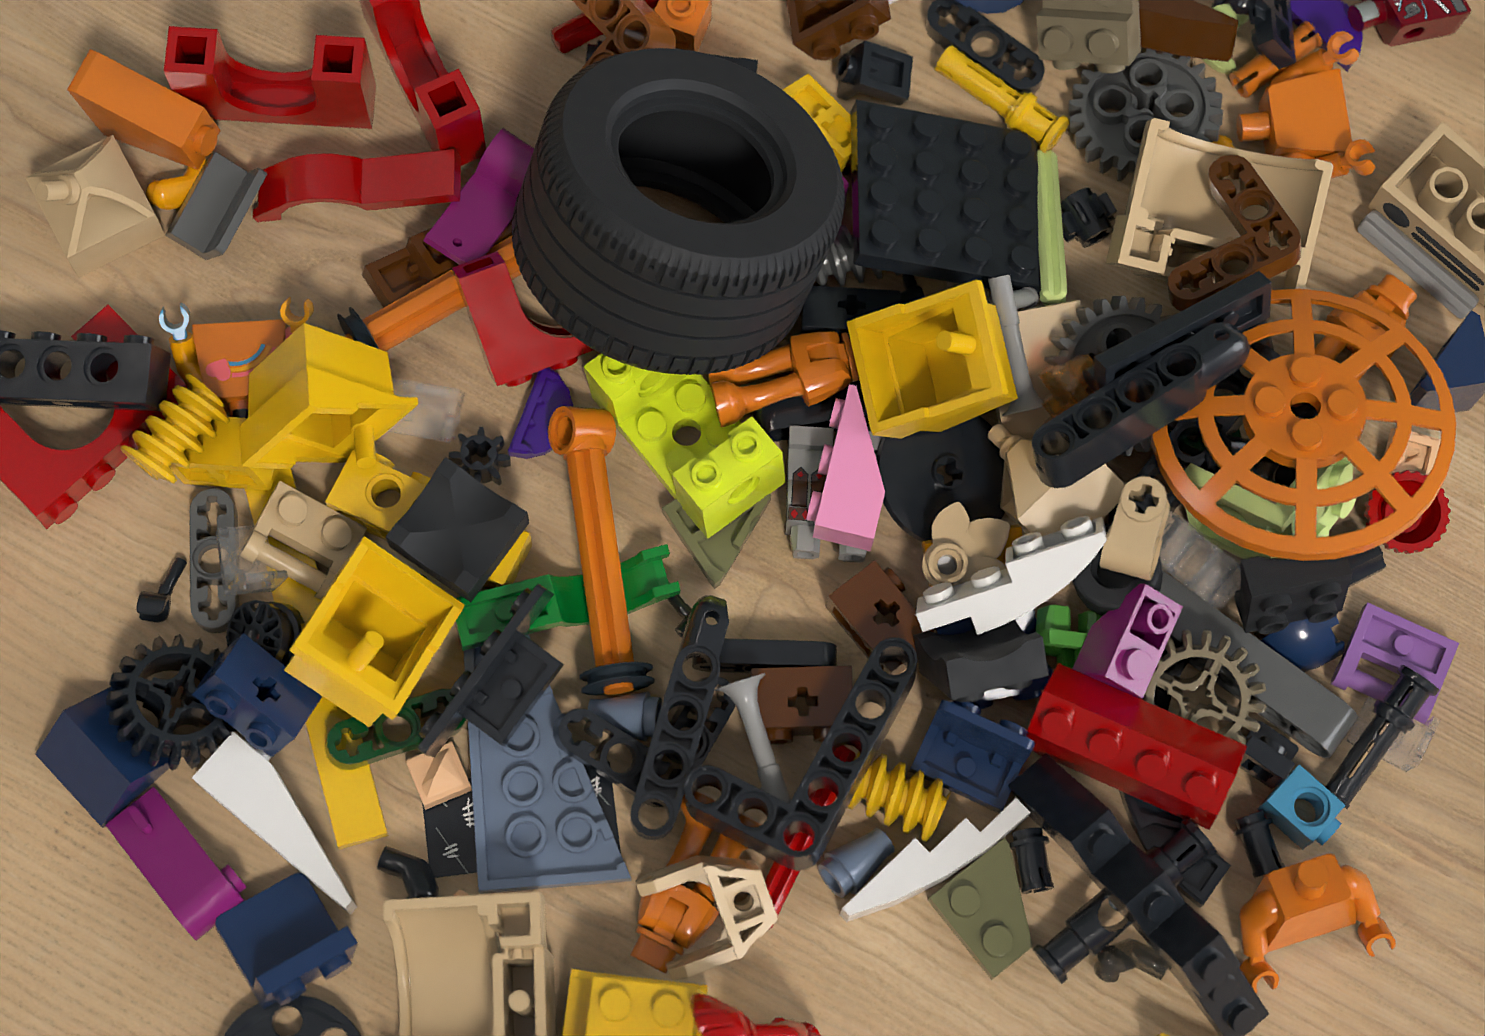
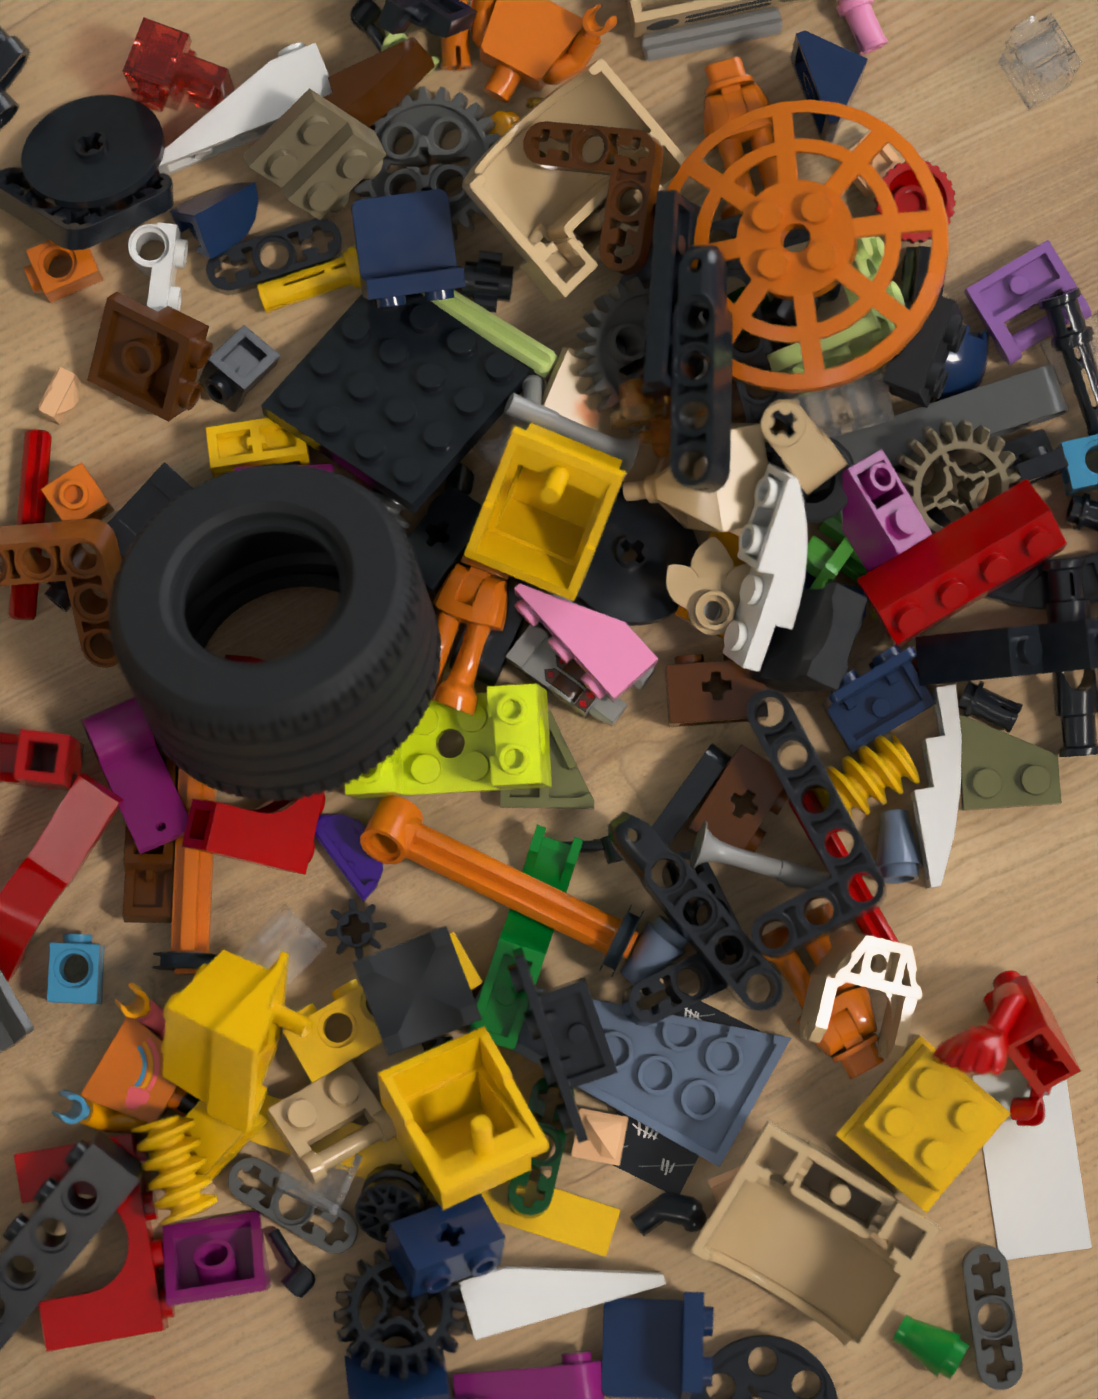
camera: 50 degrees left, 10 degrees up
(126, 525) = (215, 1258): none -> magenta slope
(295, 281) = (84, 992): none -> dark azure brick
(1066, 127) = (406, 247): none -> dark blue bracket

